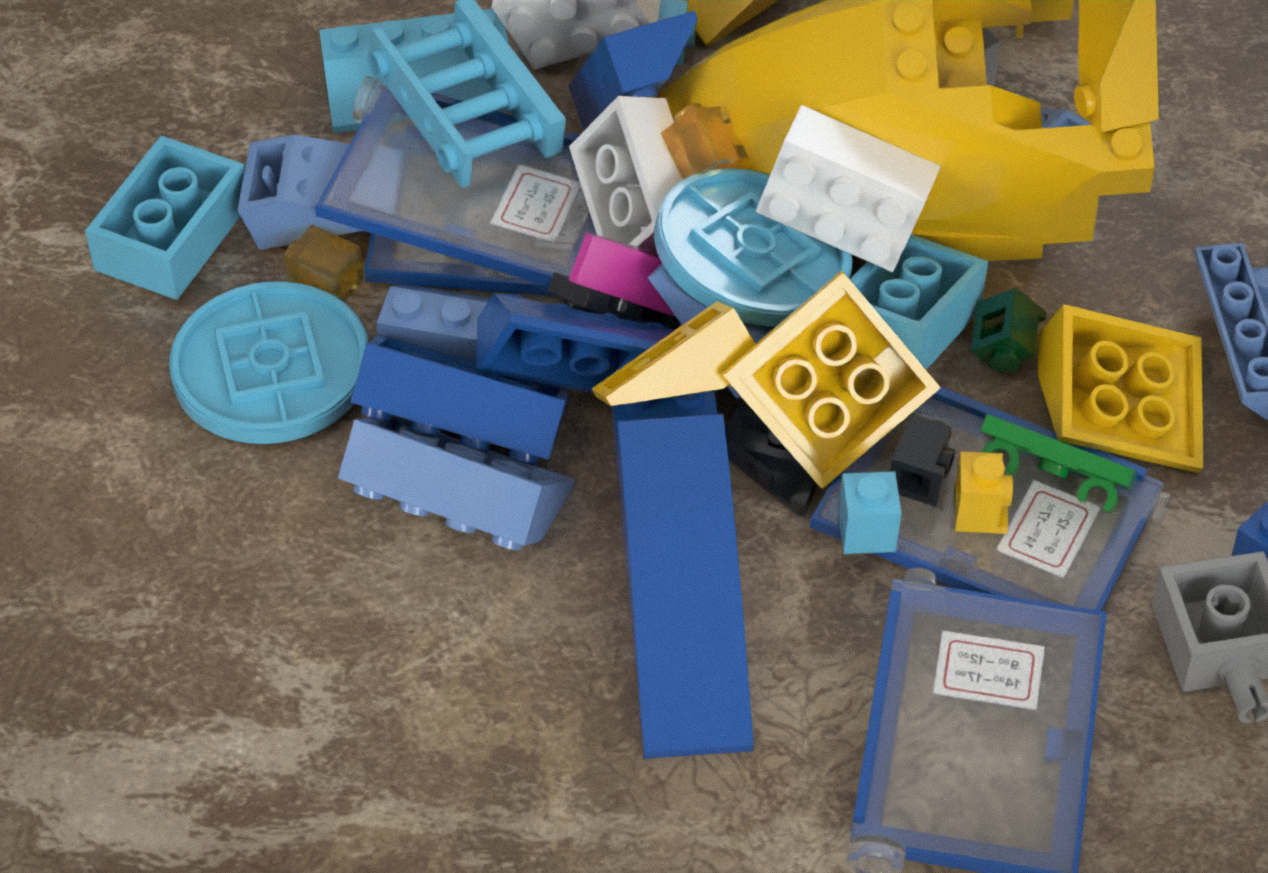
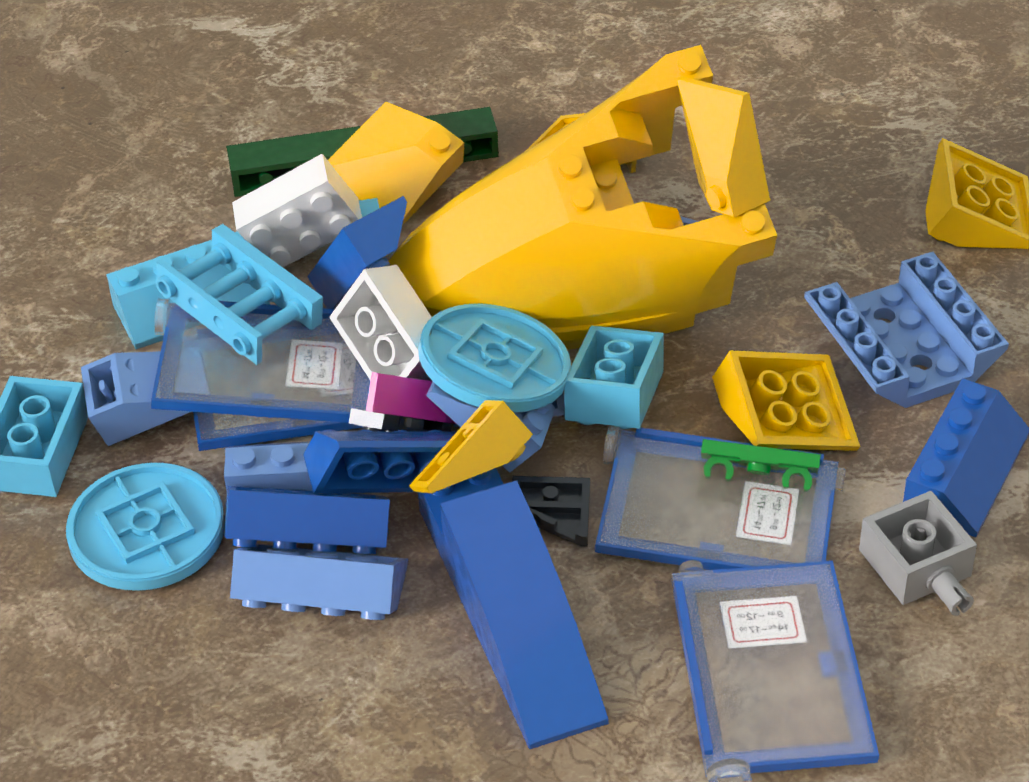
camera: 15 degrees left, 5 degrees down
(325, 262) = (164, 442): clear yellow brick -> none
(703, 140) = (435, 289): clear yellow brick -> none
(831, 380) = (585, 439): yellow slope -> none
(847, 188) = (554, 300): white brick -> none
(869, 512) = (640, 529): medium azure brick -> none
(923, 459) = (665, 484): black brick -> none
(982, 493) = (715, 497): yellow brick -> none
(1006, 338) = (691, 388): dark green brick -> none

